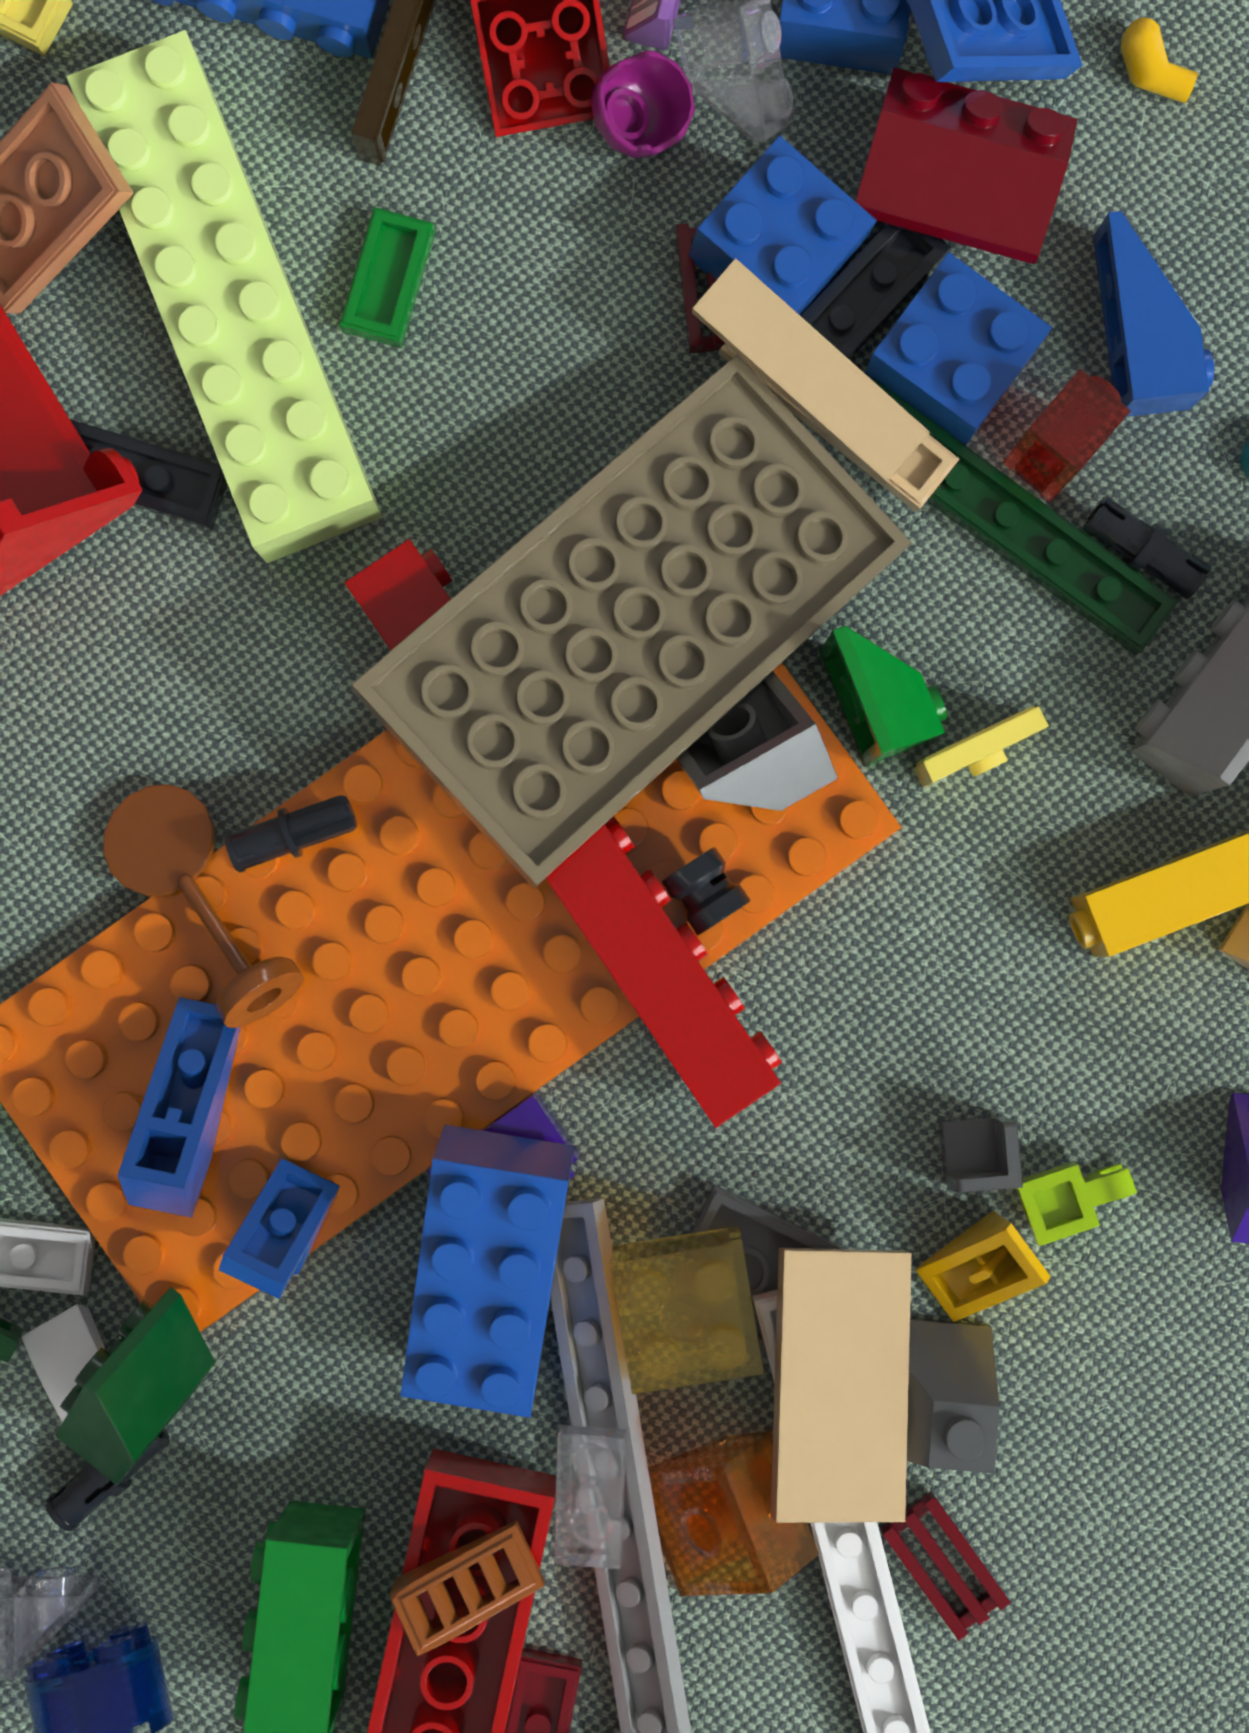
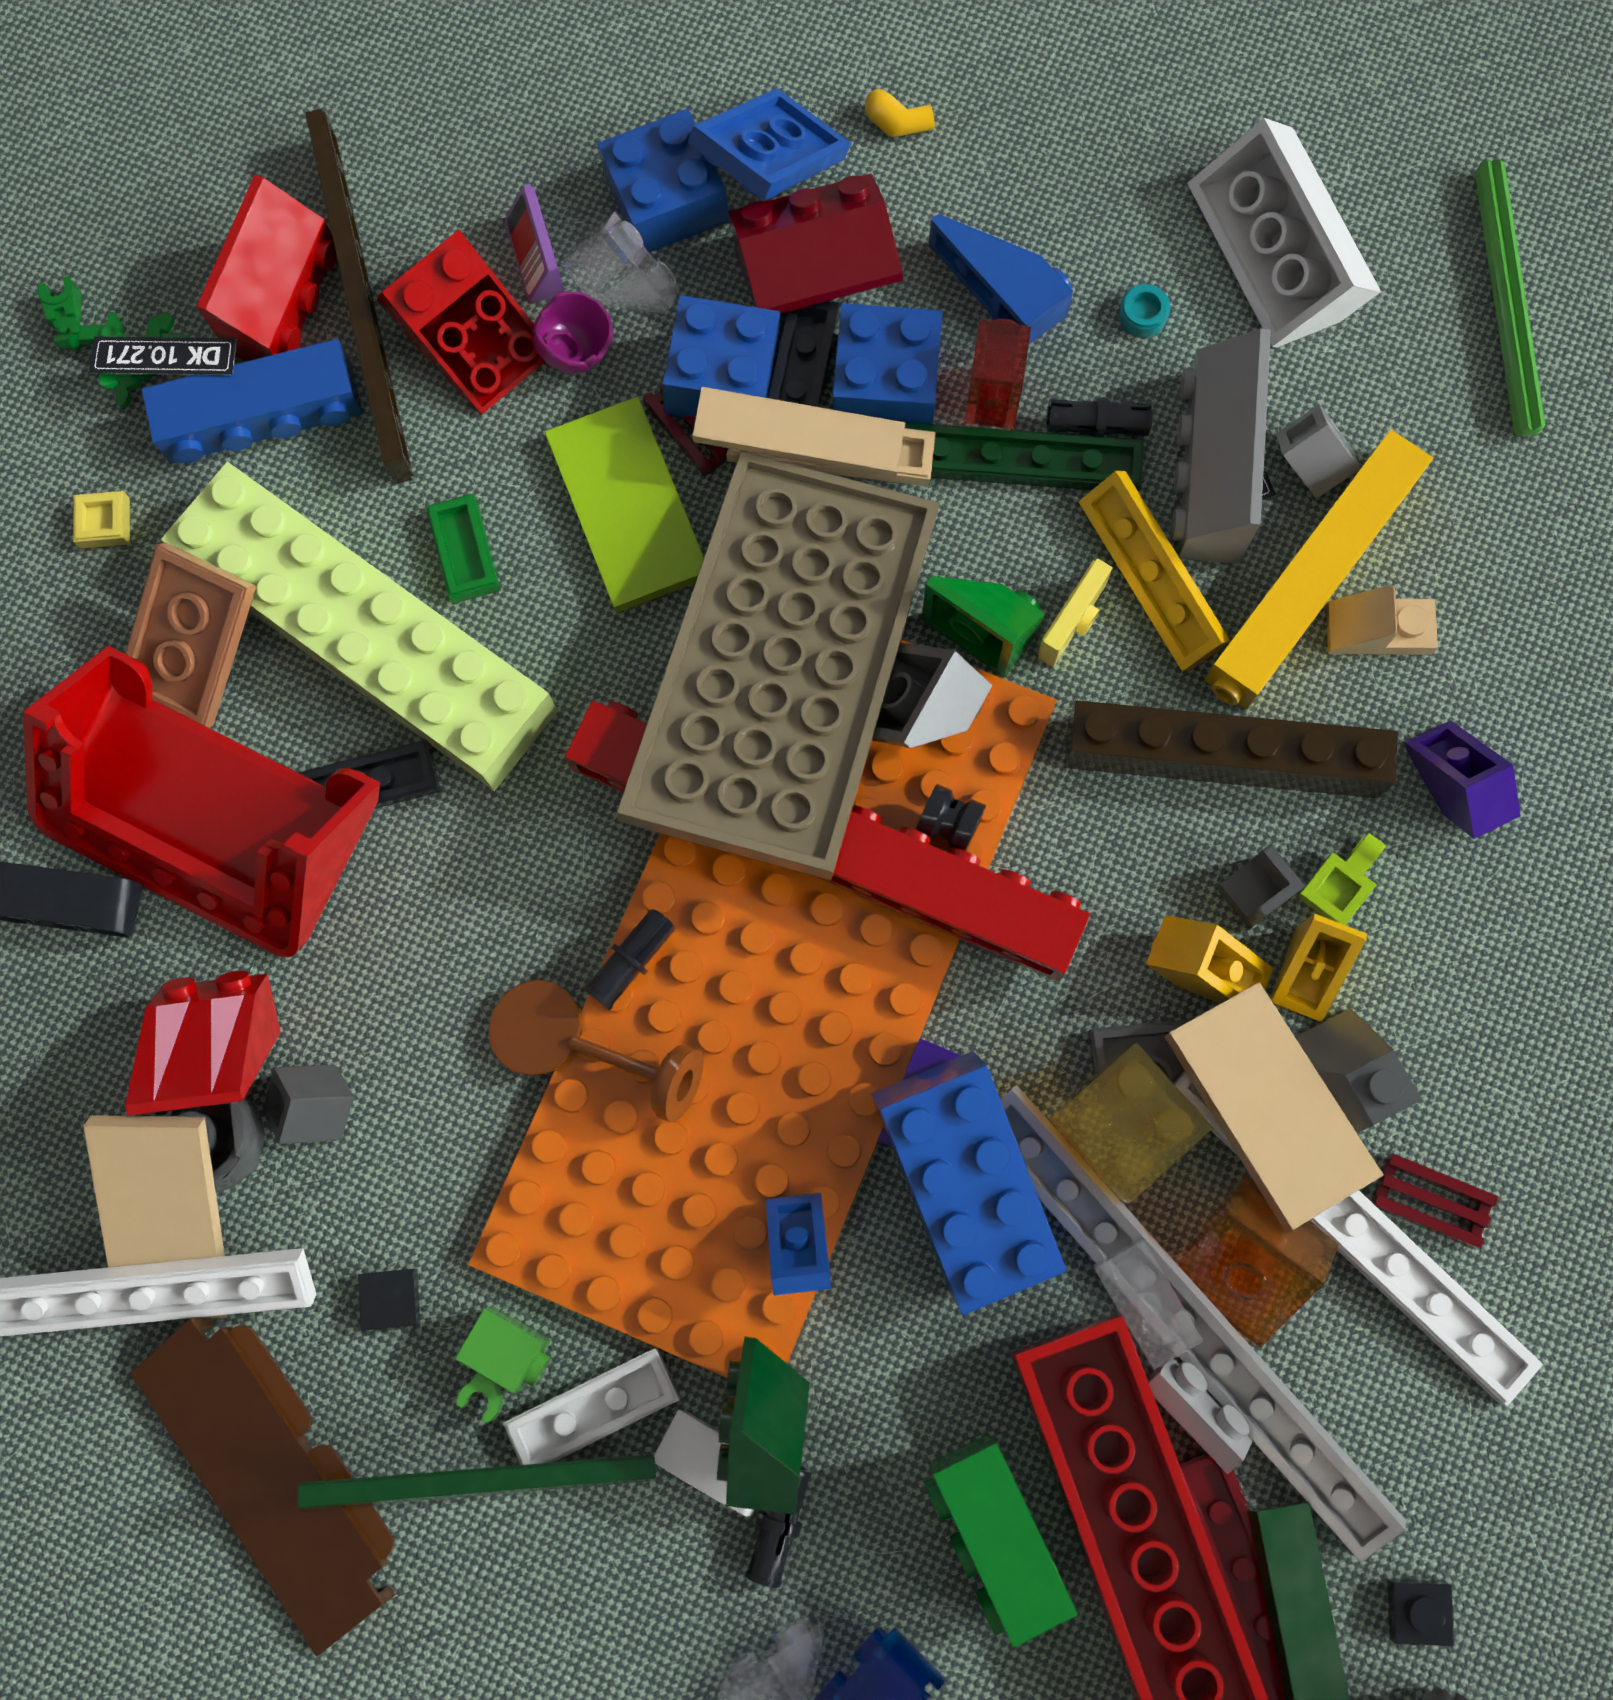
camera: 25 degrees left, 10 degrees down
(180, 1112) = (672, 1206): blue slope -> none
(452, 1621) = (1059, 1448): dark orange slope -> none
(573, 1613) = (1214, 1427): none -> light grey plate
(587, 333) = (626, 504): none -> lime tile
(875, 1193) = (1205, 959): none -> yellow slope
(1046, 993) = (1231, 749): none -> dark brown brick
(1092, 752) = (1154, 571): none -> yellow plate

